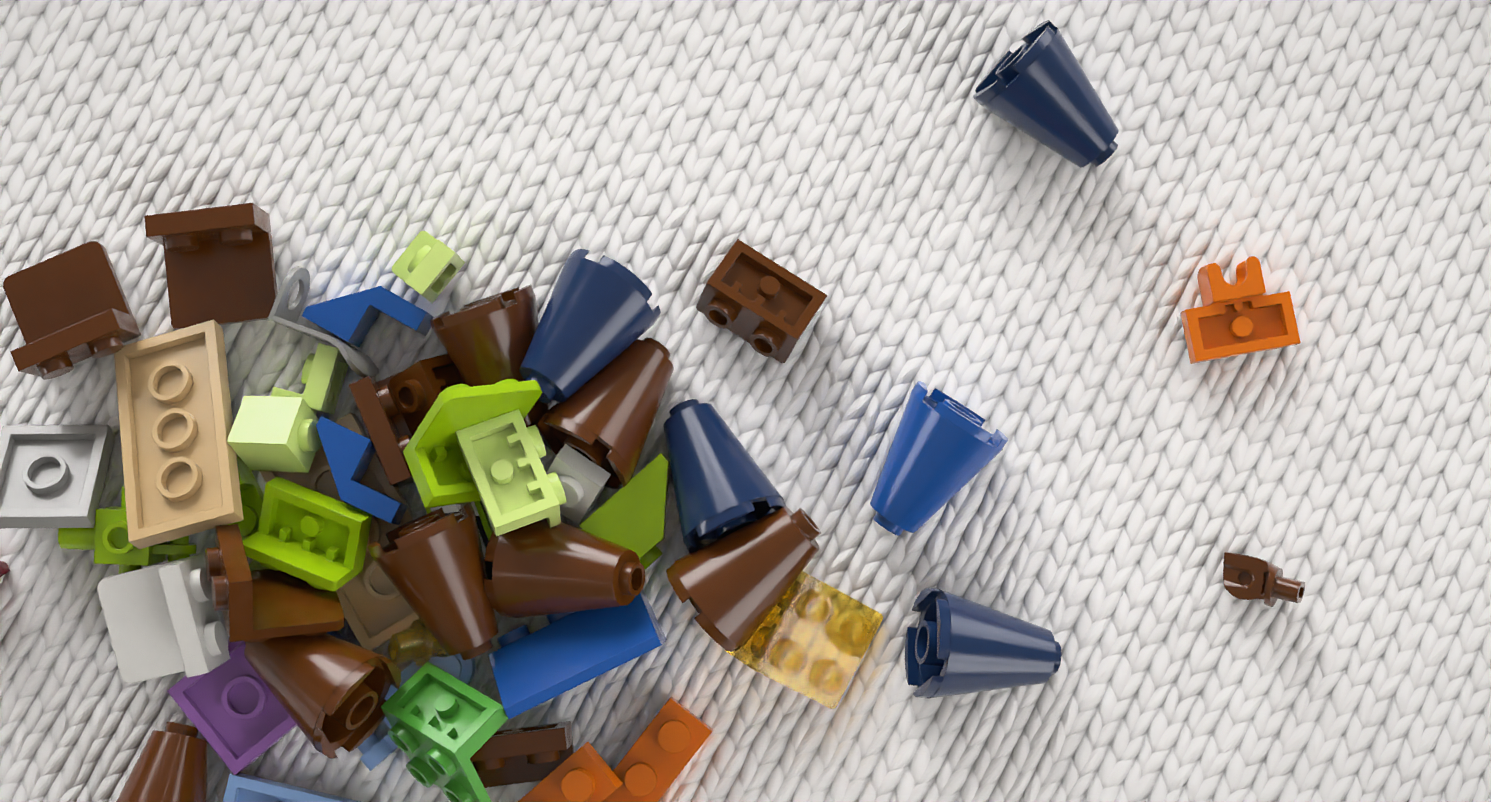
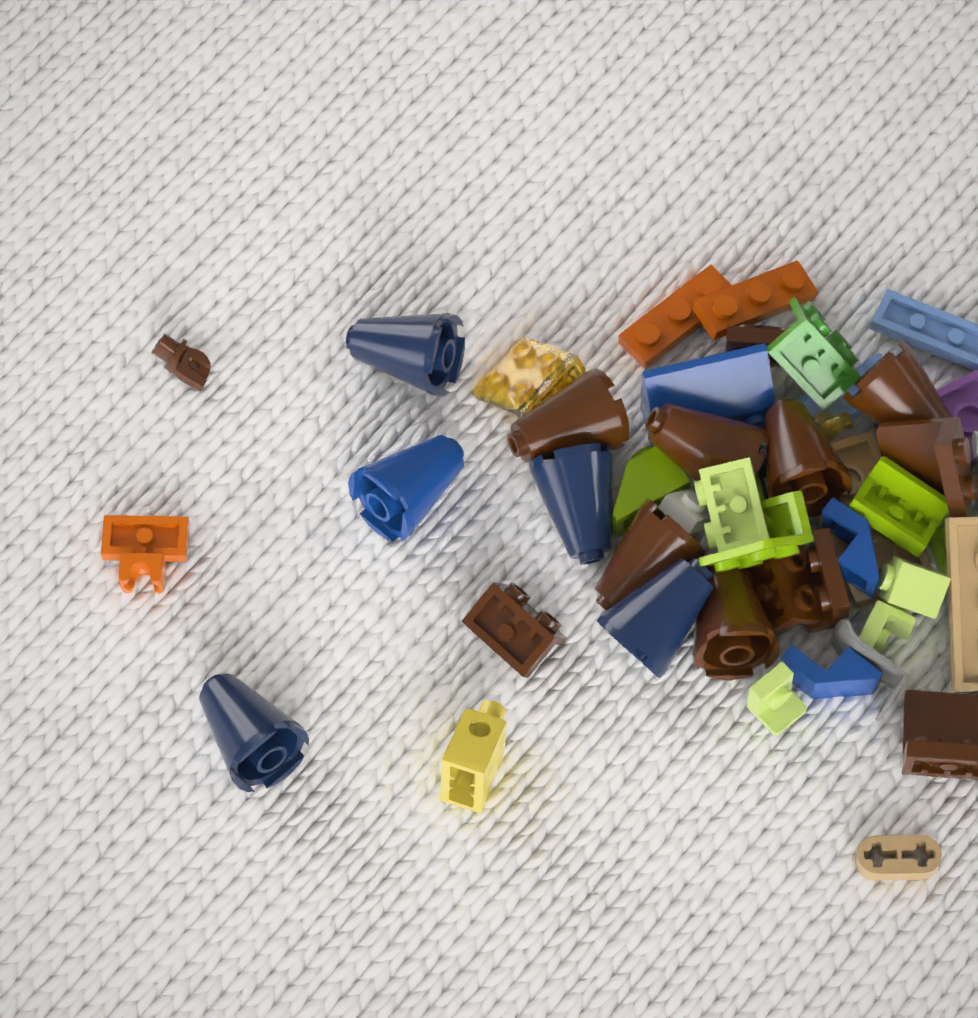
camera: 165 degrees left, 20 degrees down
(261, 121) = (898, 847): none -> tan beam
(777, 99) = (474, 756): none -> light yellow torso

